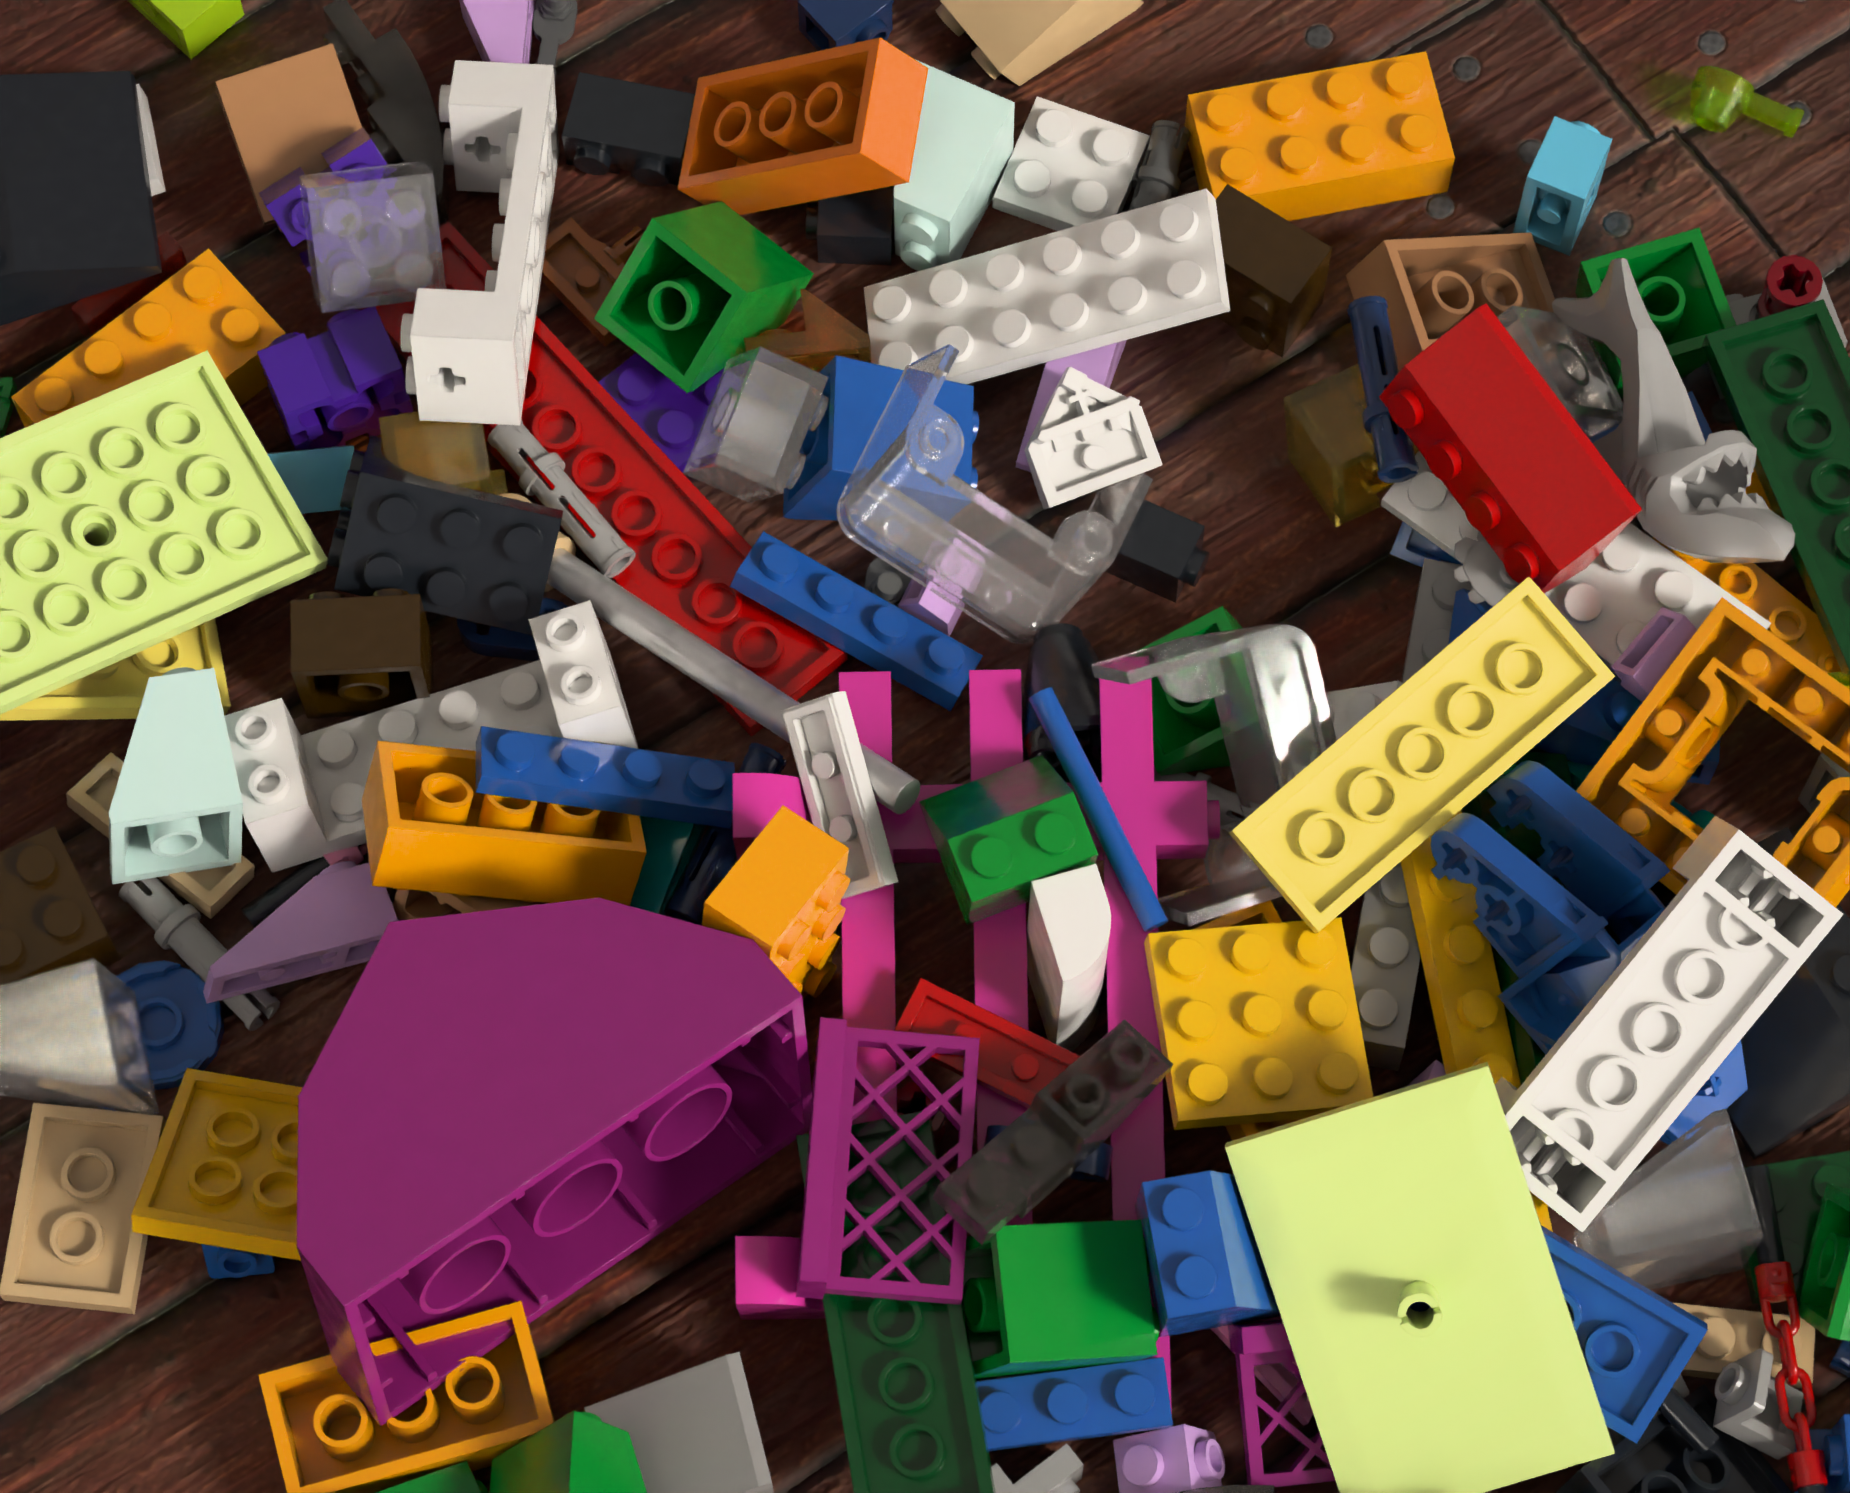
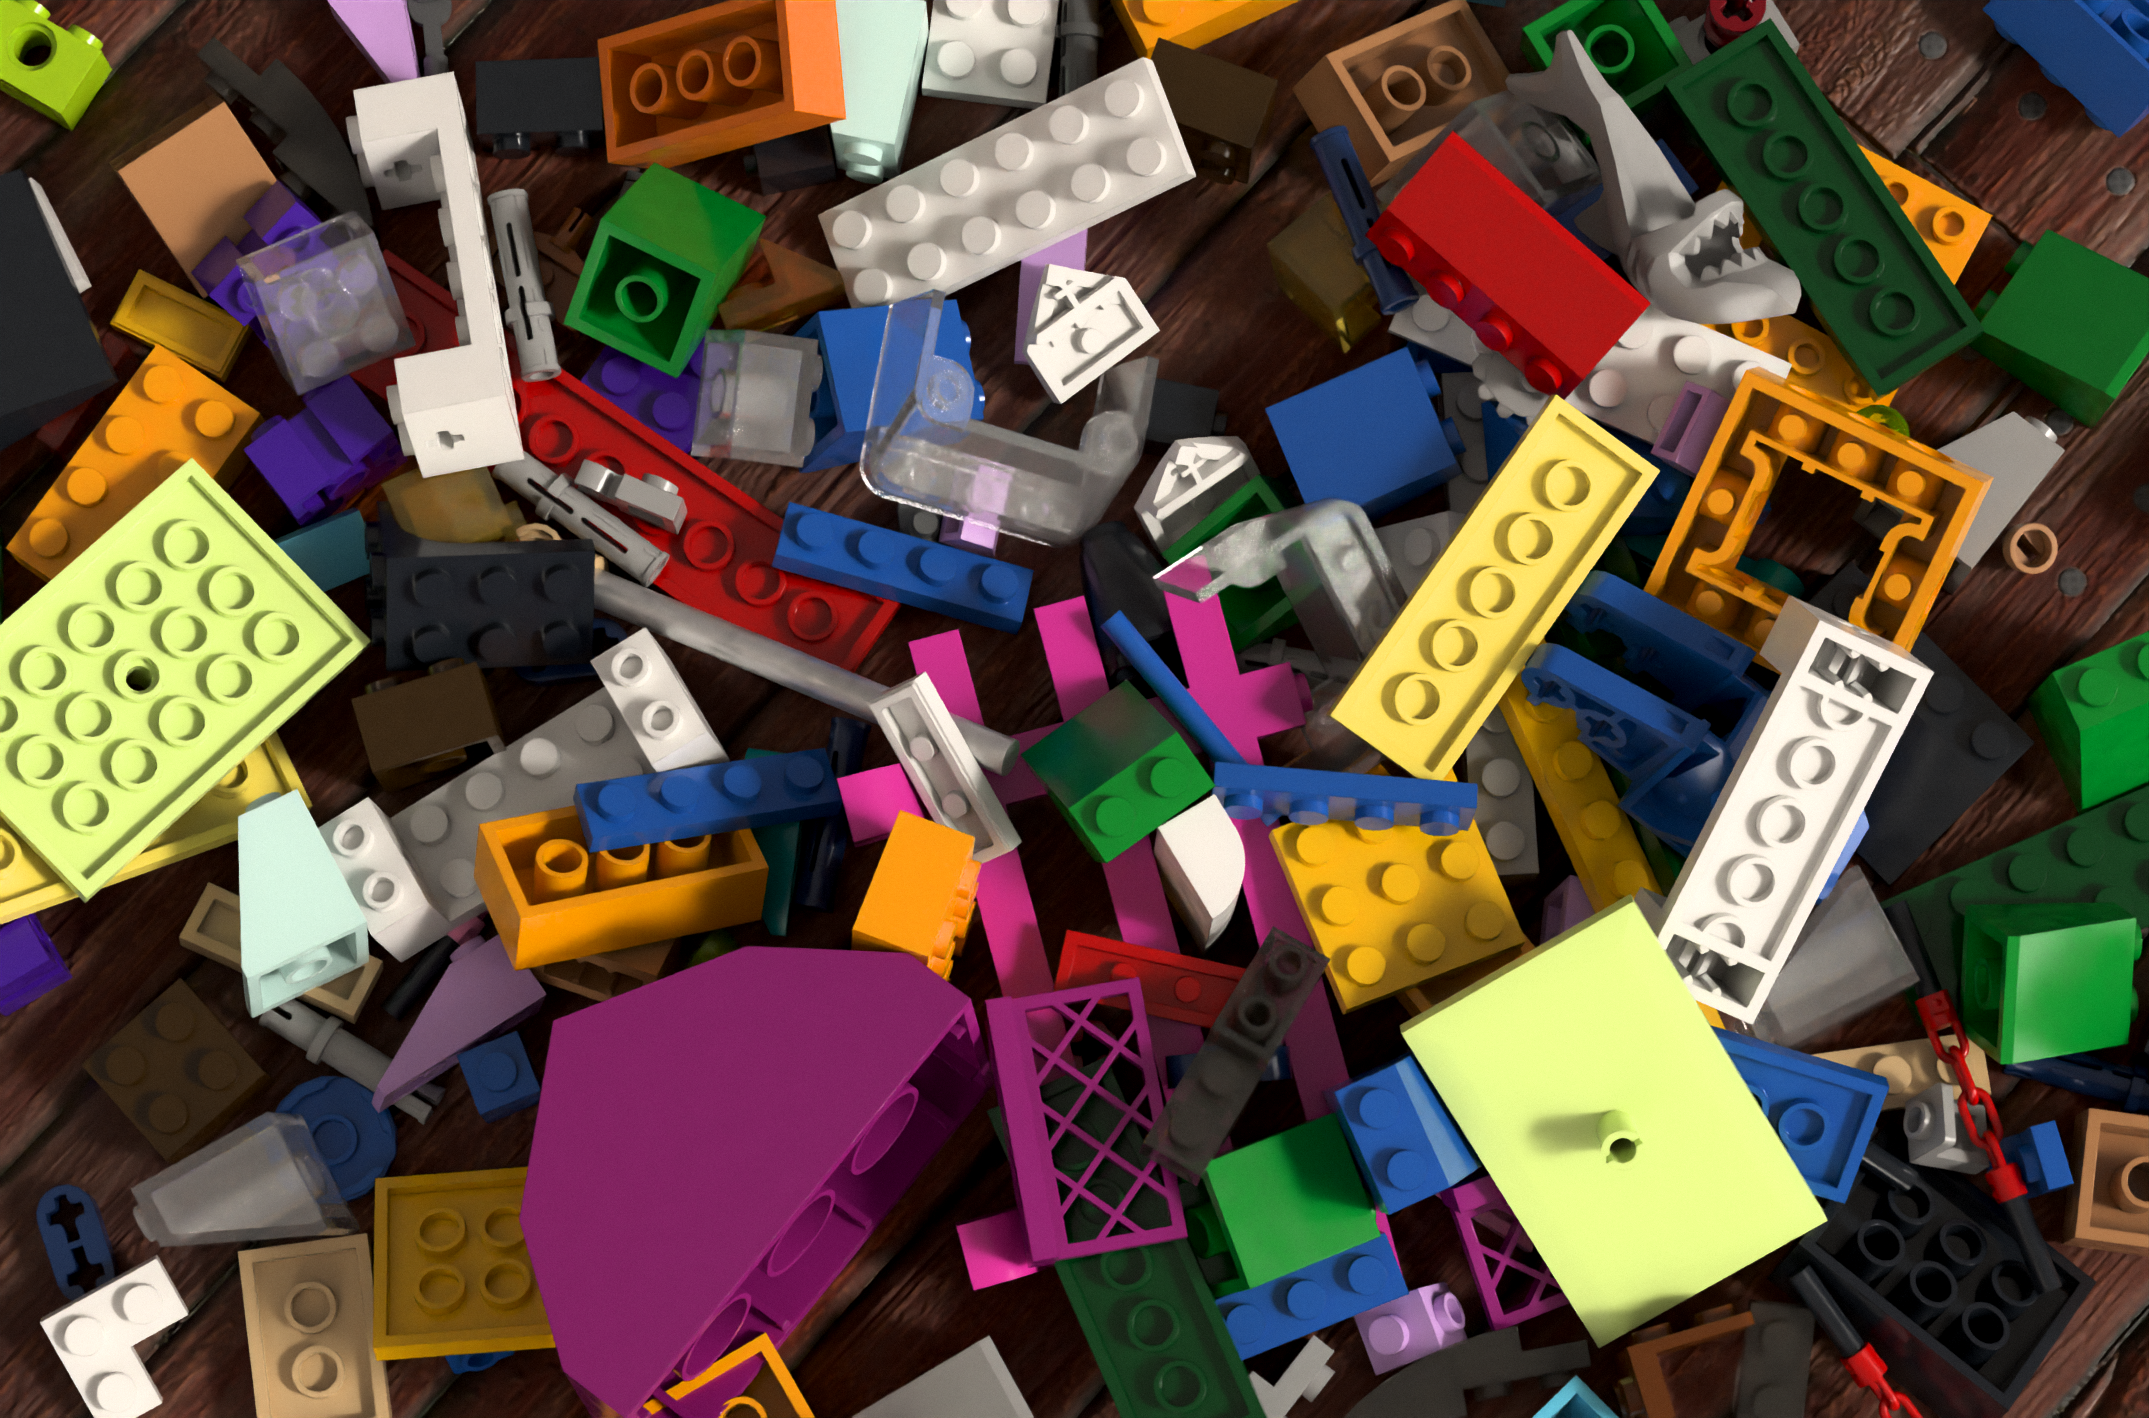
camera: 15 degrees left, 10 degrees up
(243, 247) = (181, 324): none -> yellow tile
(324, 992) = (501, 1077): none -> blue brick
(565, 302) = (528, 309): none -> light grey pin
(625, 495) = (646, 499): none -> light grey plate
(1152, 602) = (1191, 484): none -> white slope
(1227, 912) = (1366, 799): none -> blue plate
(1344, 590) = (1369, 436): none -> blue slope

